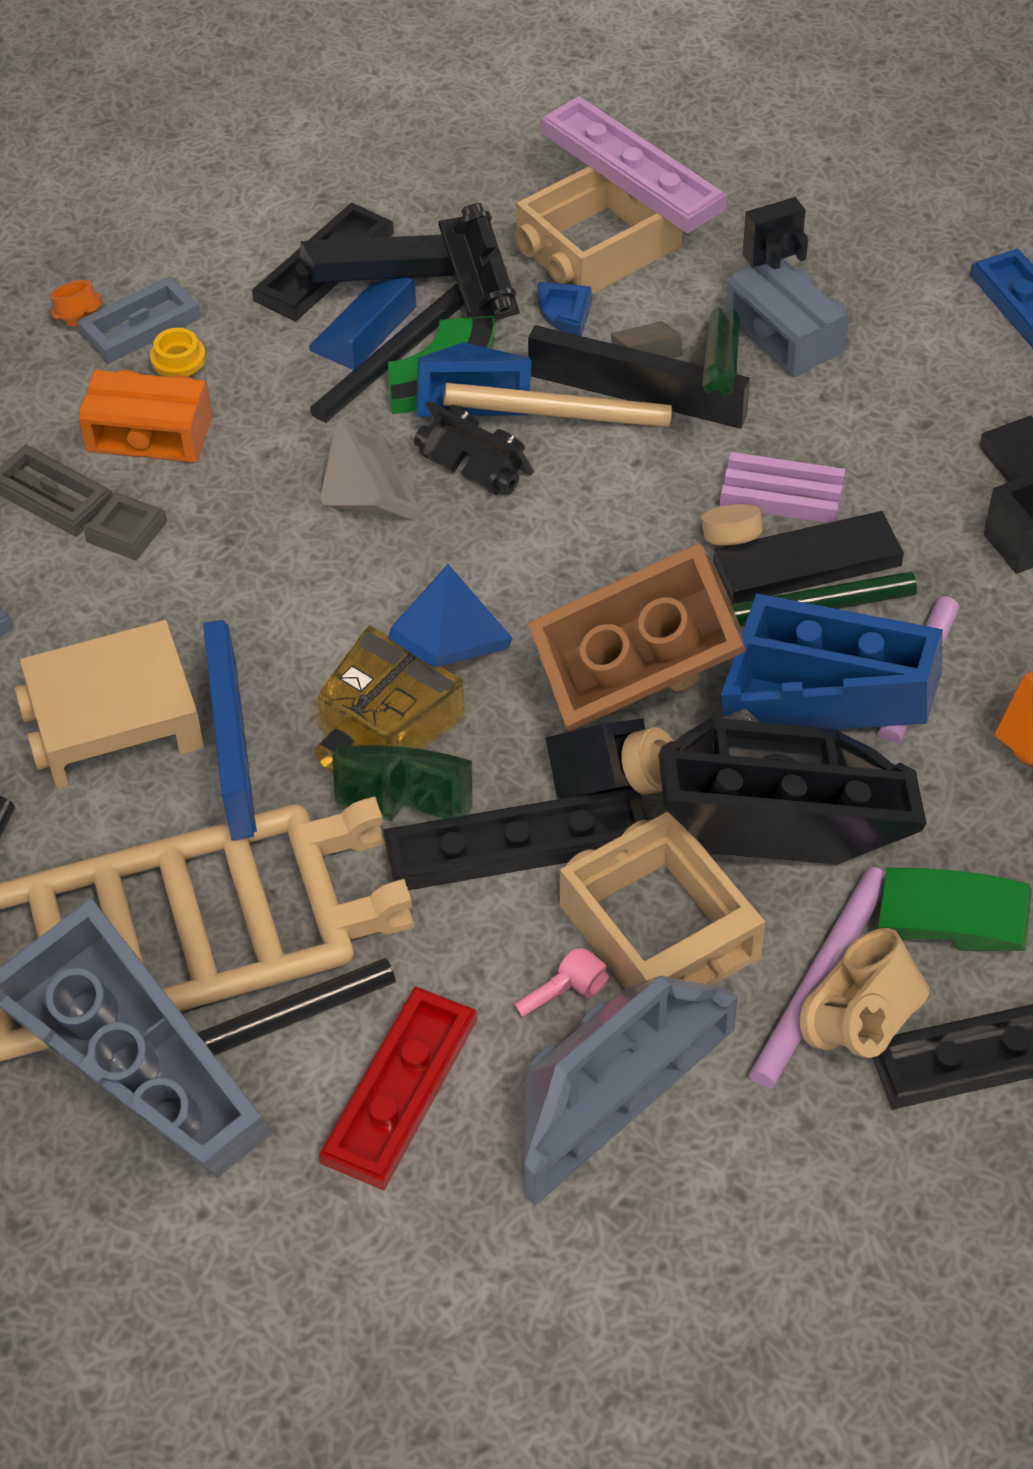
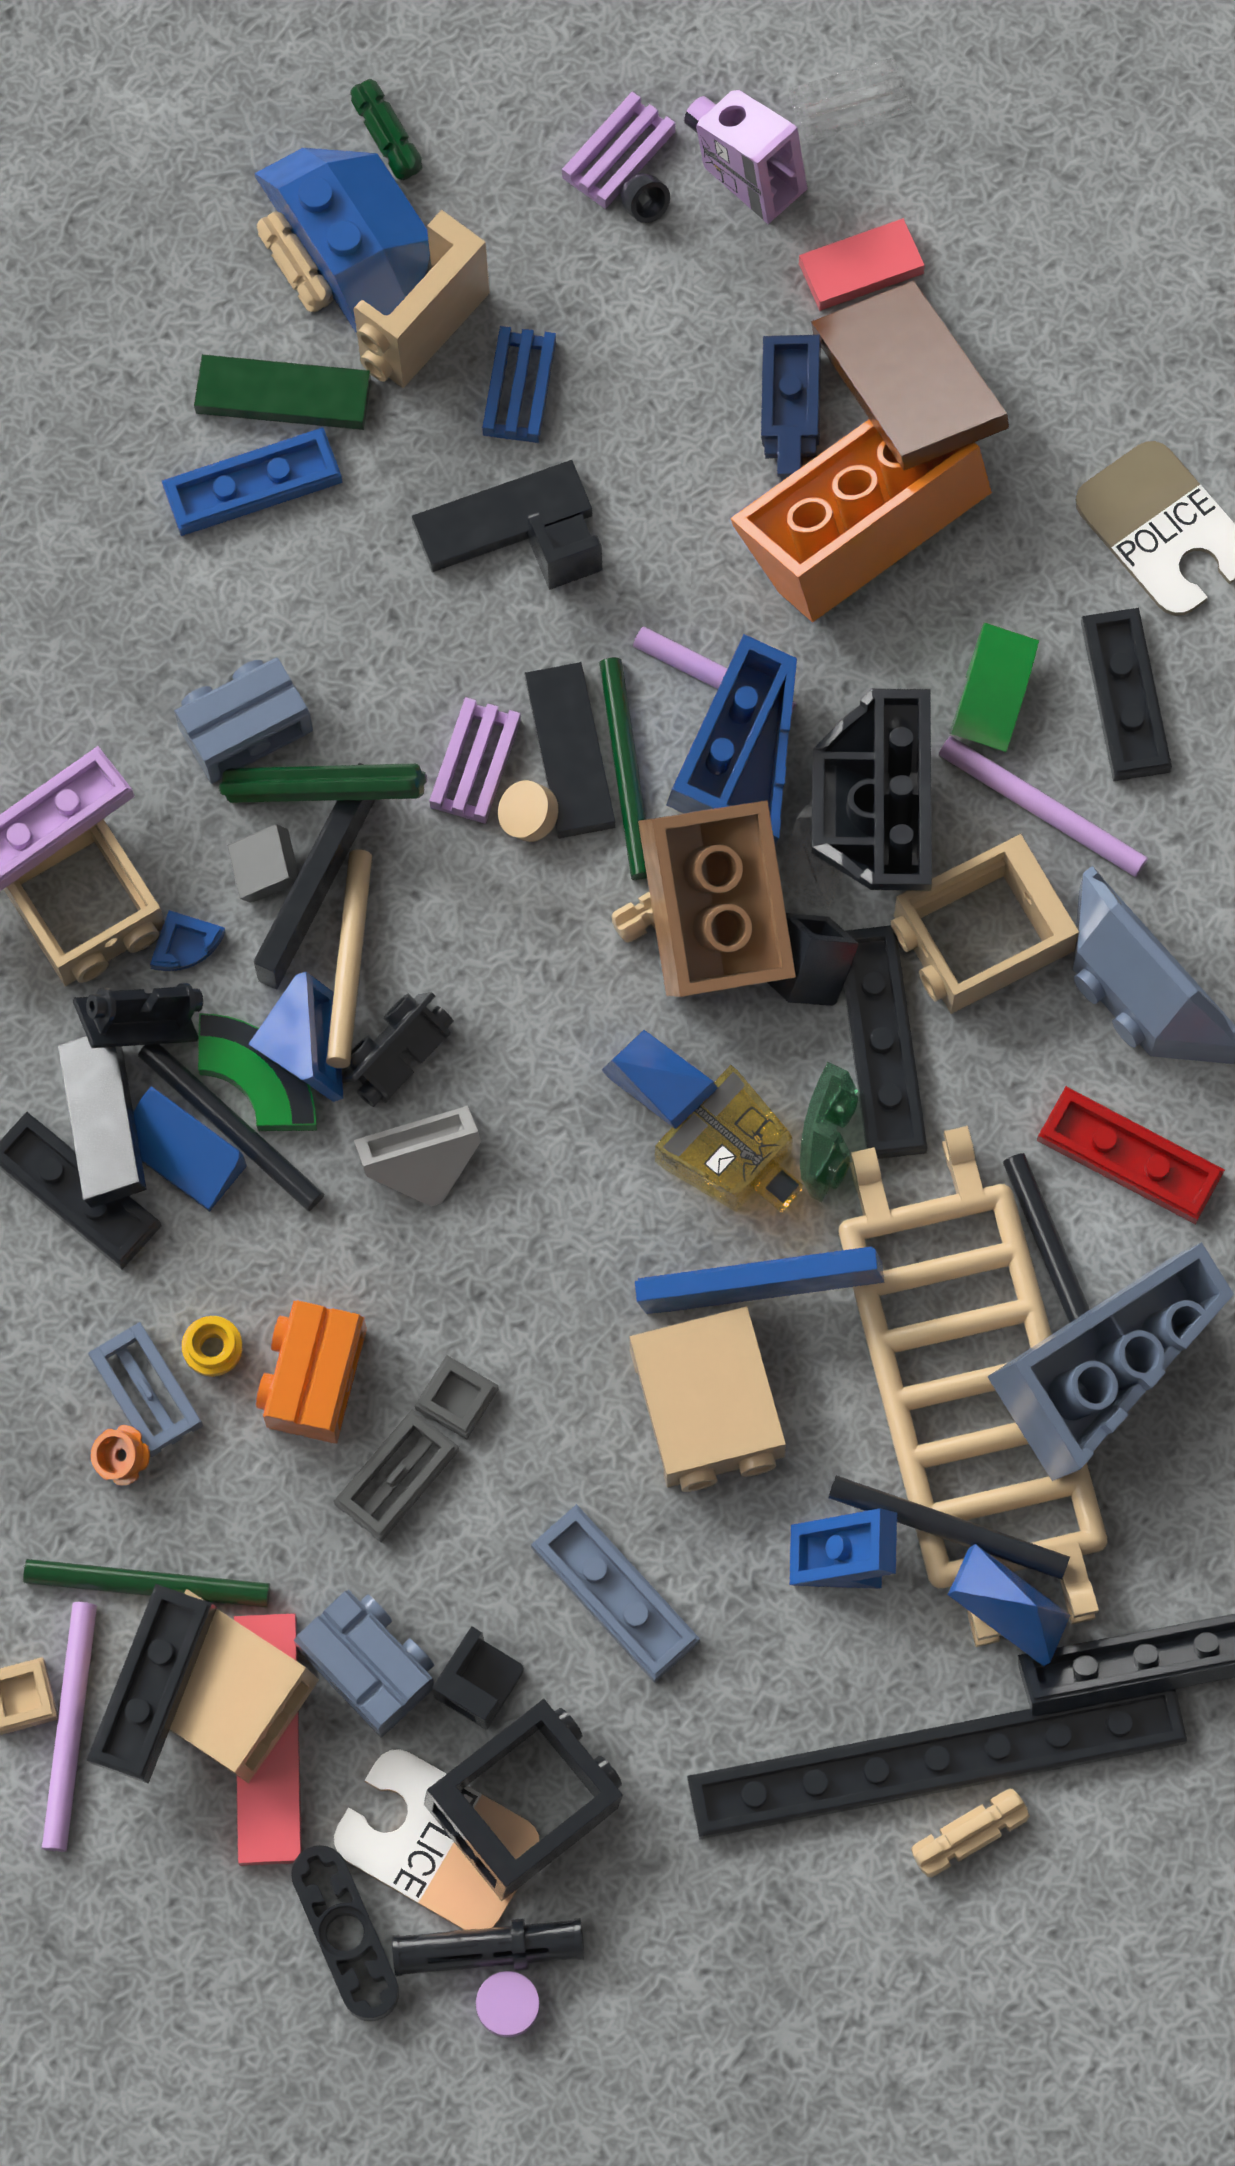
camera: 85 degrees left, 20 degrees up
(578, 970) = (1029, 1000): bright pink hand -> none
(641, 759) = (825, 912): tan tile -> none
(775, 233) = (177, 703): black tile -> none
(865, 996) = (1097, 776): tan piece -> none

